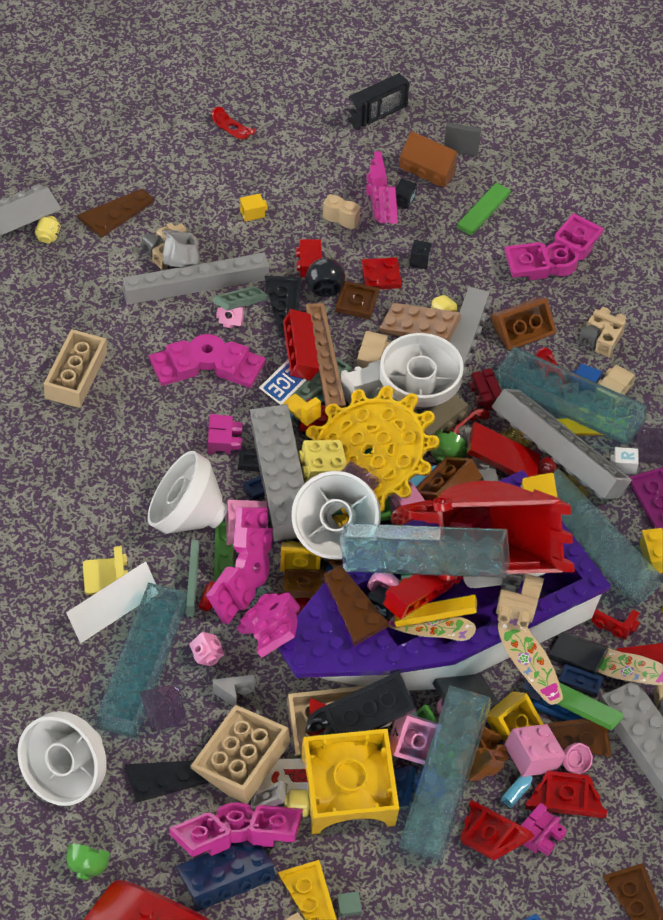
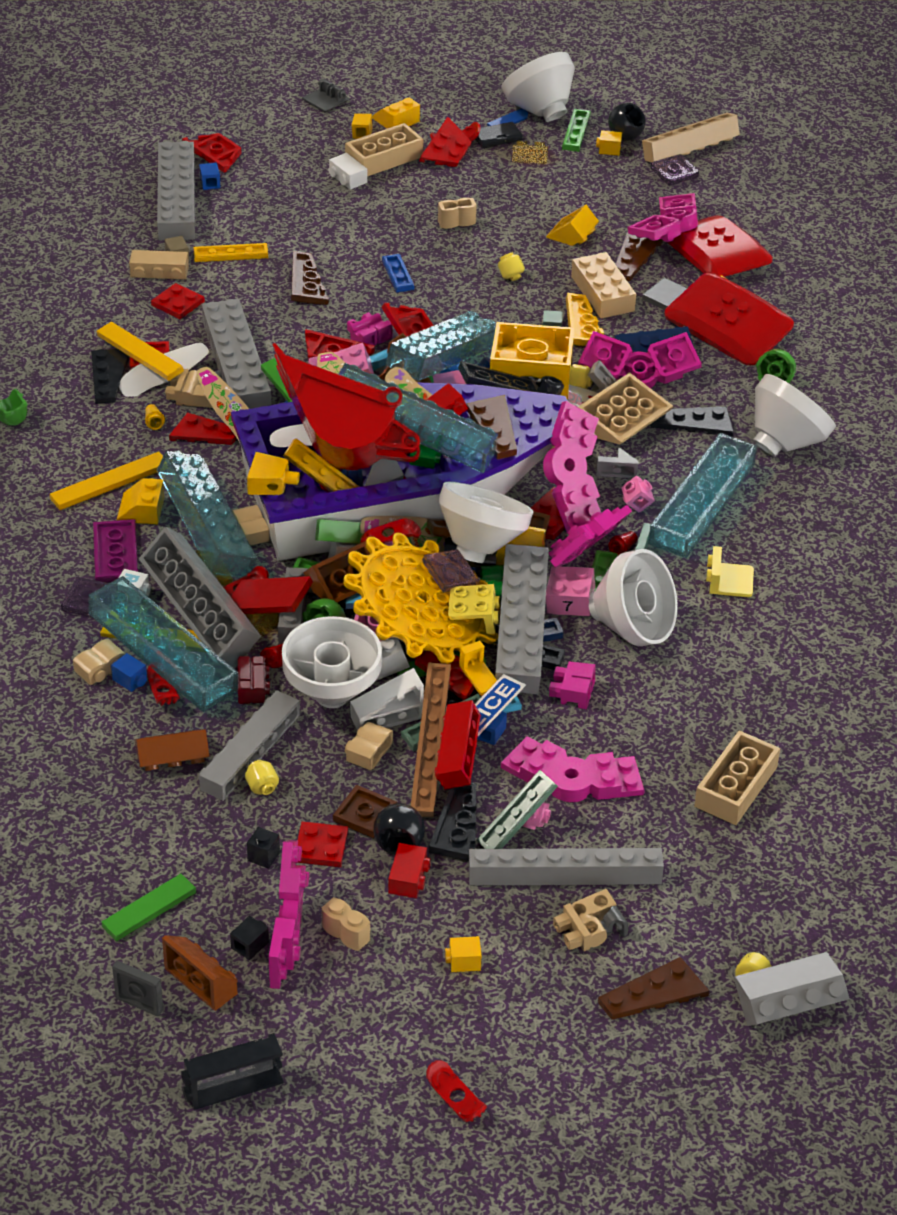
camera: 165 degrees left, 10 degrees down
(110, 603) = (726, 543): white sticker -> none
(164, 707) = (689, 450): clear purple plate -> none
(180, 249) = (579, 884): light grey piece -> none
(411, 319) = (299, 761): medium nougat plate -> none
(560, 258) = (85, 816): dark pink plate -> none
(609, 329) = (79, 720): tan hips -> none
(617, 628) = (216, 448): red bracket -> none

